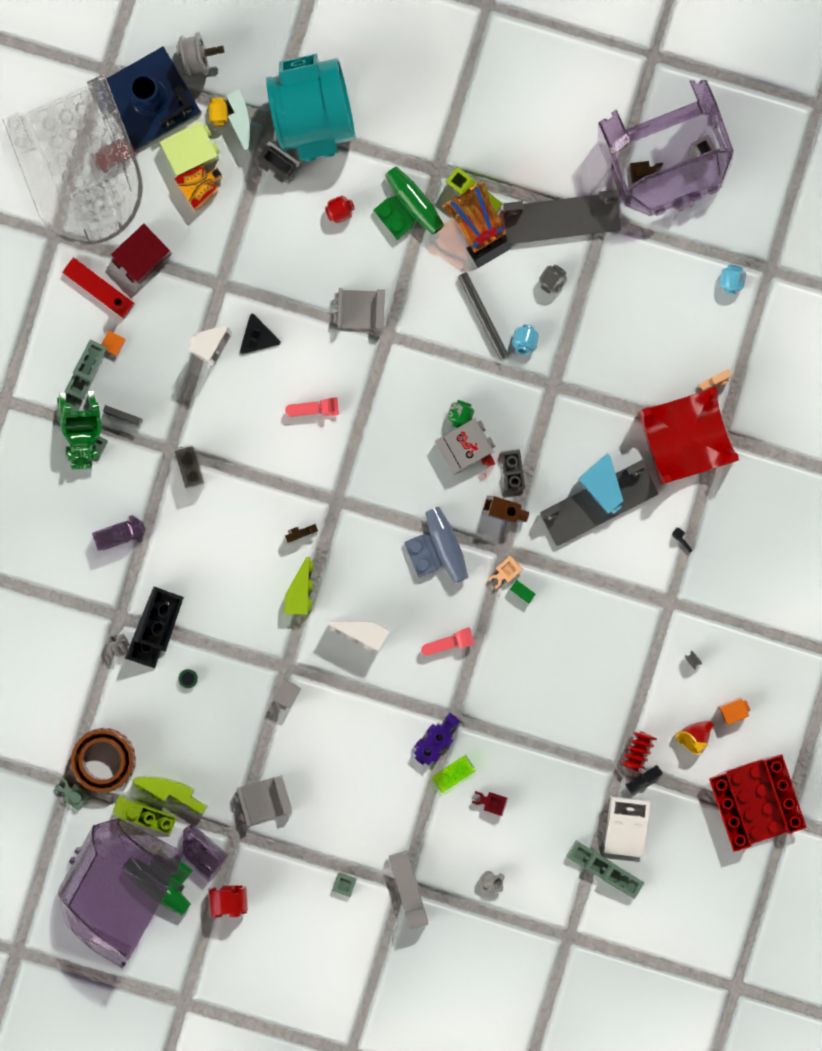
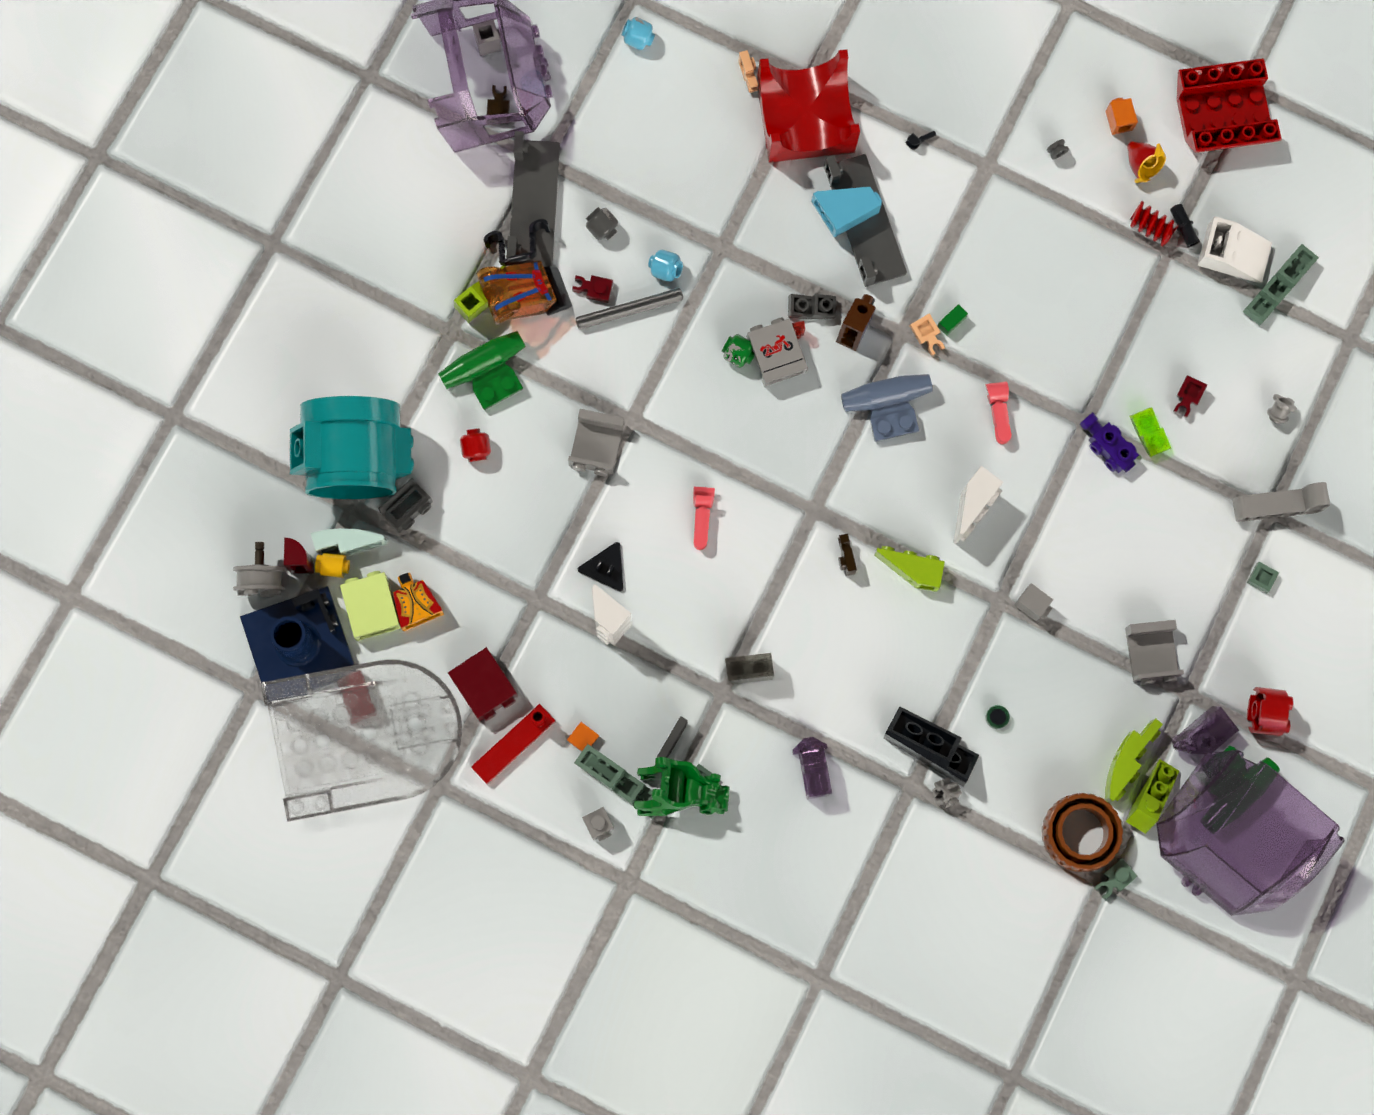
camera: 90 degrees left, 10 degrees down
(43, 368) = (598, 824): none -> light grey brick
(217, 82) = (296, 558): none -> dark red brick
(496, 286) = (597, 288): none -> dark red plate
(503, 214) = (520, 258): none -> black piece

